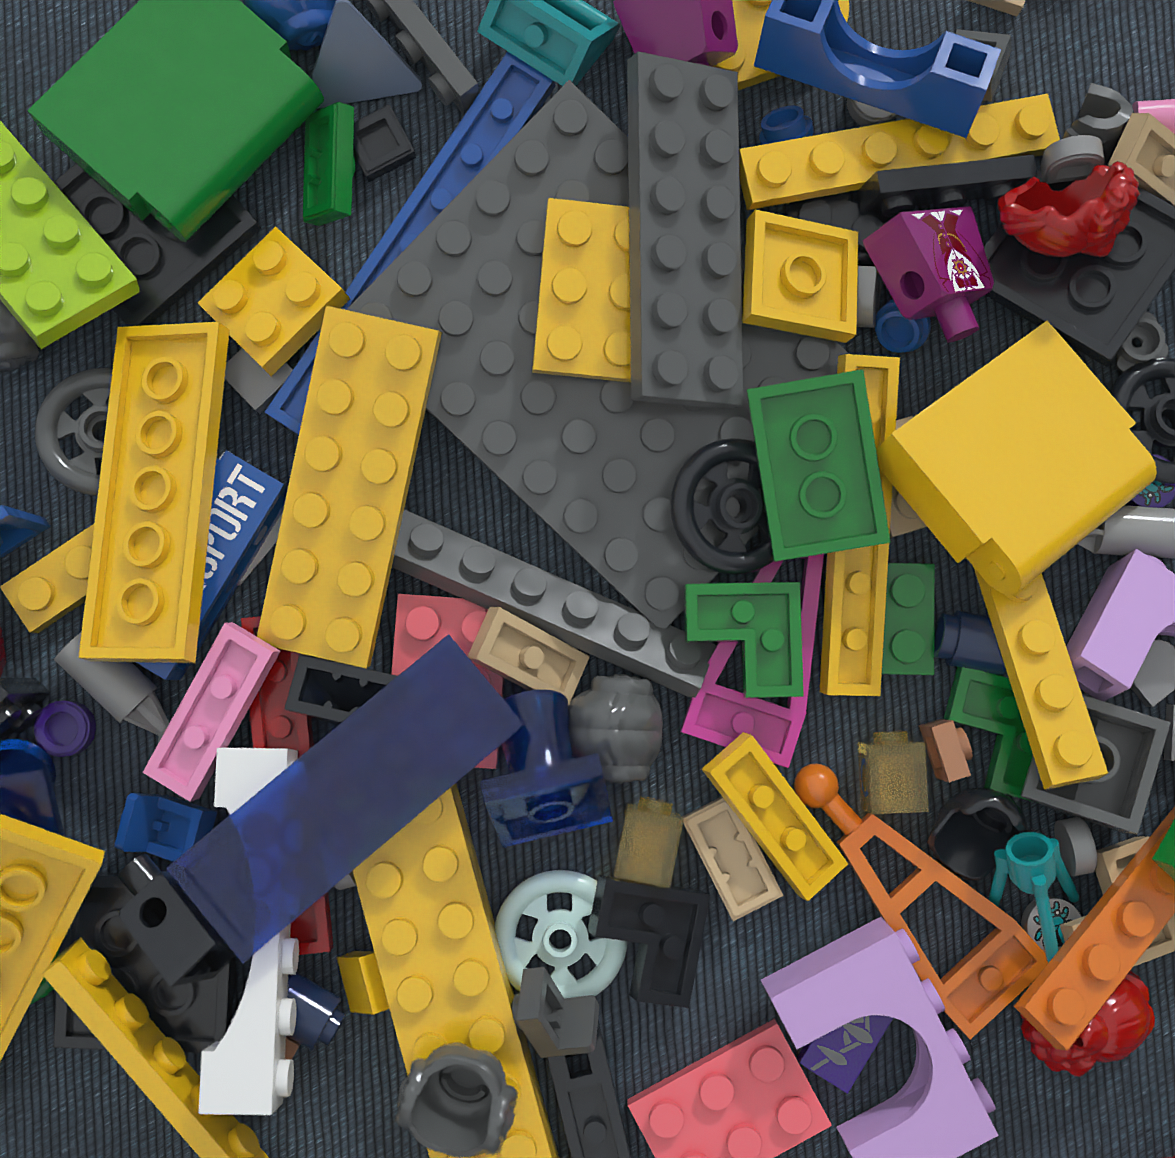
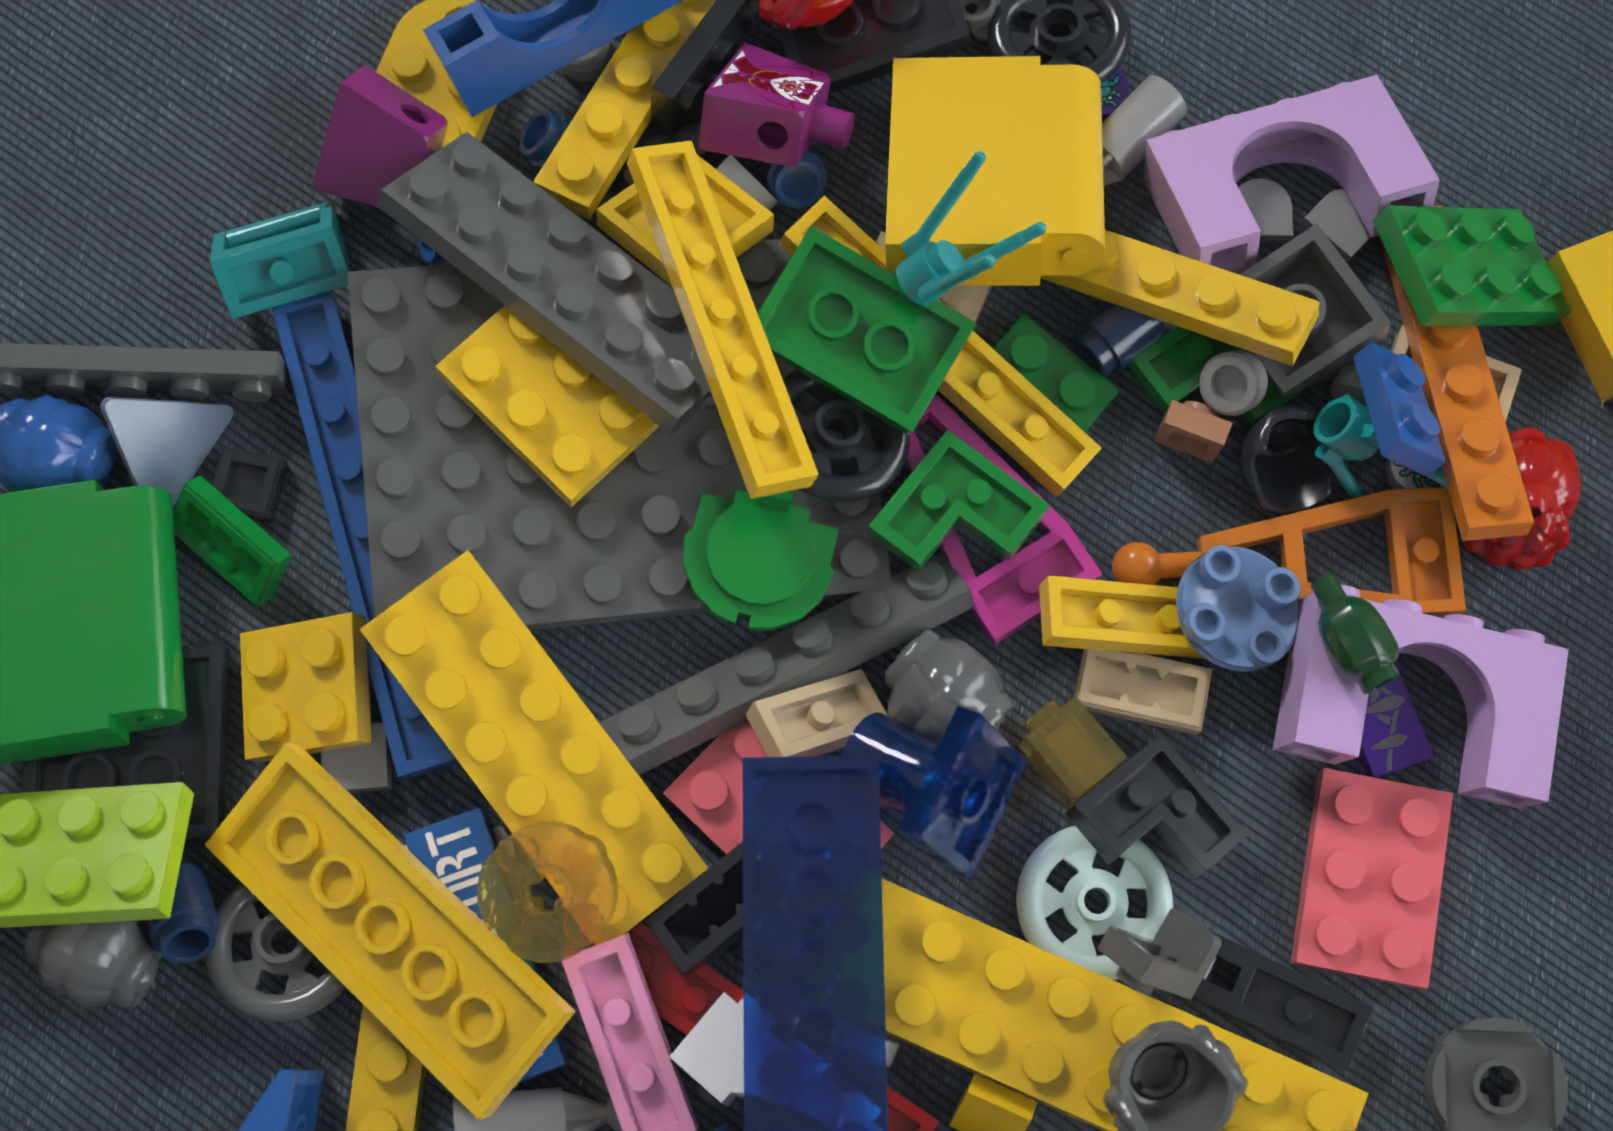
camera: 50 degrees left, 10 degrees down
(64, 359) = (192, 922): none -> dark blue brick
(289, 578) = (520, 919): none -> clear yellow plate
(602, 527) = (758, 559): none -> green piece
(741, 364) = (722, 320): none -> yellow plate
(839, 882) = (1238, 608): none -> medium blue dish
(878, 986) = (1355, 637): none -> dark green plant
(893, 774) = (1178, 491): clear yellow brick -> none
(904, 485) = (939, 267): none -> teal plant
(1001, 753) = (1233, 382): none -> light grey tile
(1075, 889) = (1399, 409): none -> blue plate

